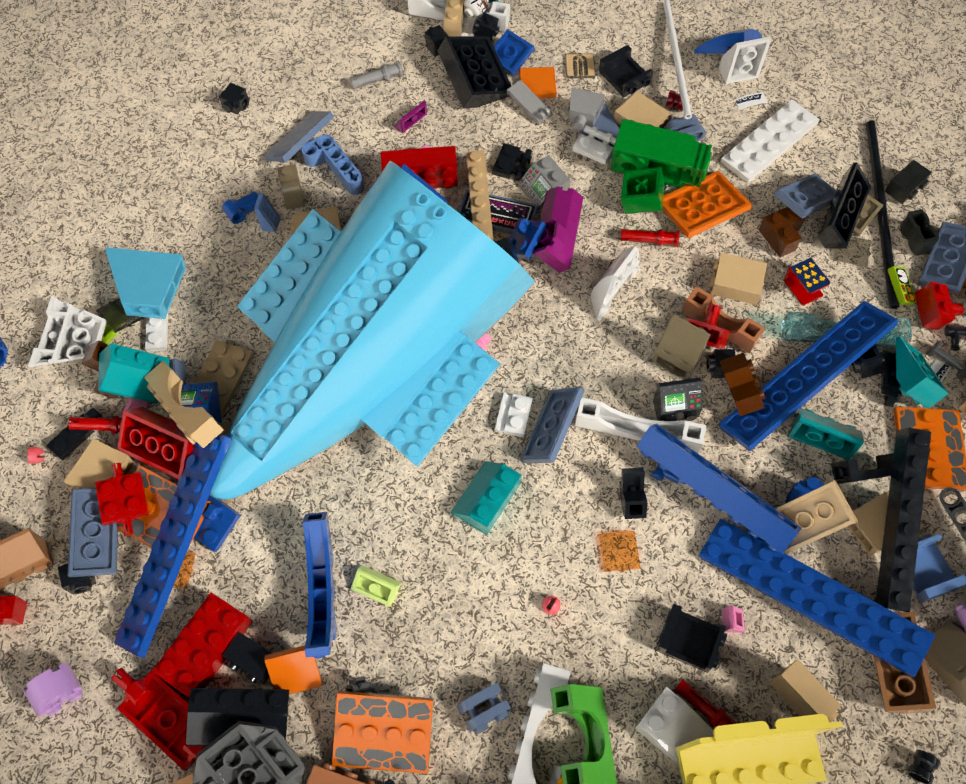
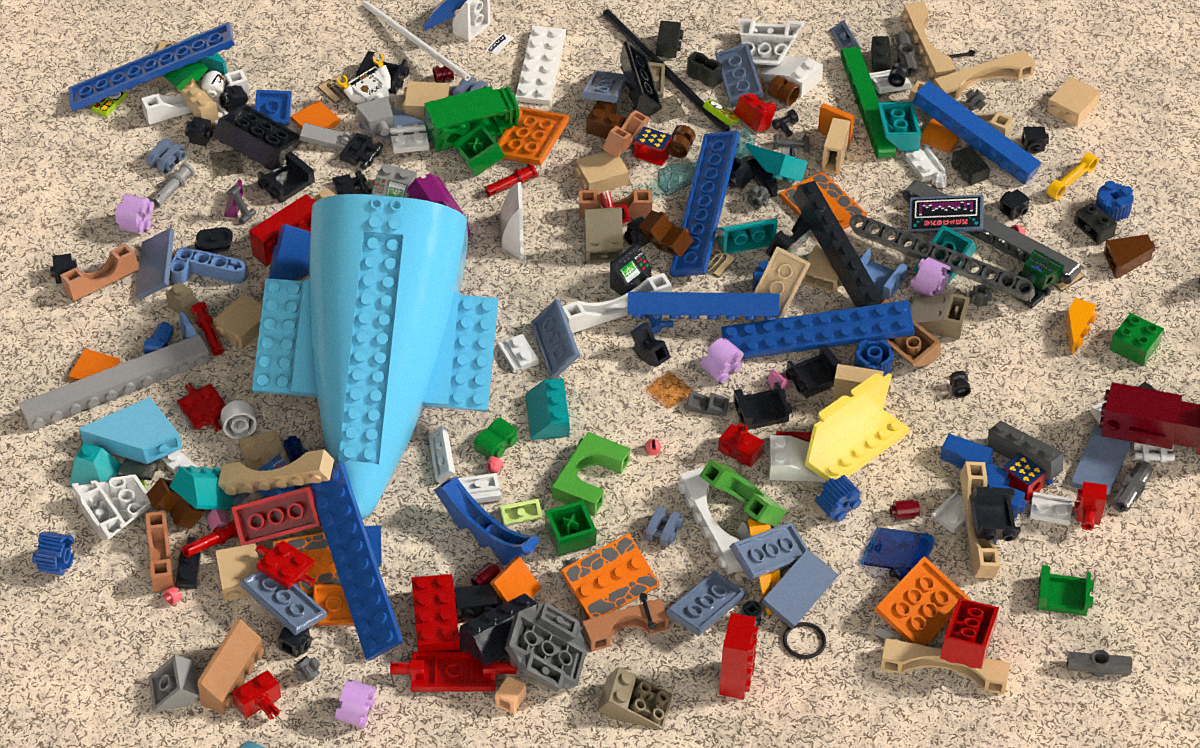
camera: 40 degrees left, 15 degrees down
(57, 616) = (307, 668): none -> dark grey gear
(72, 390) = (159, 550): none -> nougat arch
(89, 290) = (93, 464): none -> teal slope
(132, 559) = (333, 601): none -> orange tile
(176, 223) = (114, 382): none -> light grey brick
(178, 200) = (92, 363): none -> orange tile
(220, 290) = (202, 406): none -> red plate
(227, 320) = (238, 418): none -> white piece
(231, 119) = (119, 264): none -> nougat arch
(236, 387) = (294, 448): none -> clear blue piece
(283, 636) = (485, 574): none -> dark red brick
(285, 211) = (205, 322): none -> red pin
(320, 82) = (134, 214): none -> lavender brick
(358, 143) = (214, 240): none -> black brick
(358, 475) = (441, 454): none -> white plate
(359, 535) = (482, 487): none -> white plate
(393, 518) = (494, 464): none -> coral hinge
(394, 46) = (165, 155): none -> sand blue brick
(395, 643) = (570, 527): none -> green brick
(410, 136) = (247, 214): none -> dark grey piece
(416, 493) = (496, 438): none -> green brick
(435, 81) = (226, 163): none -> clear smoke piece
(466, 122) = (287, 179): none -> black panel
(487, 568) = (589, 452): none -> bright green arch
(546, 128) = (356, 151): none -> black plate
(602, 77) = (369, 85): none -> white torso
(633, 670) = (741, 445): none -> red brick
(641, 595) = (710, 405): none -> dark grey slope
(690, 558) = (722, 360): none -> lavender brick
(775, 258) = (622, 138): none -> nougat arch
(776, 638) = (814, 374): none -> black panel
(778, 443) = (719, 262): none -> piece
(836, 674) = (874, 356): none -> blue brick
(838, 292) = (681, 141): none -> reddish brown wheel
(870, 398) = (758, 196): none -> dark grey gear

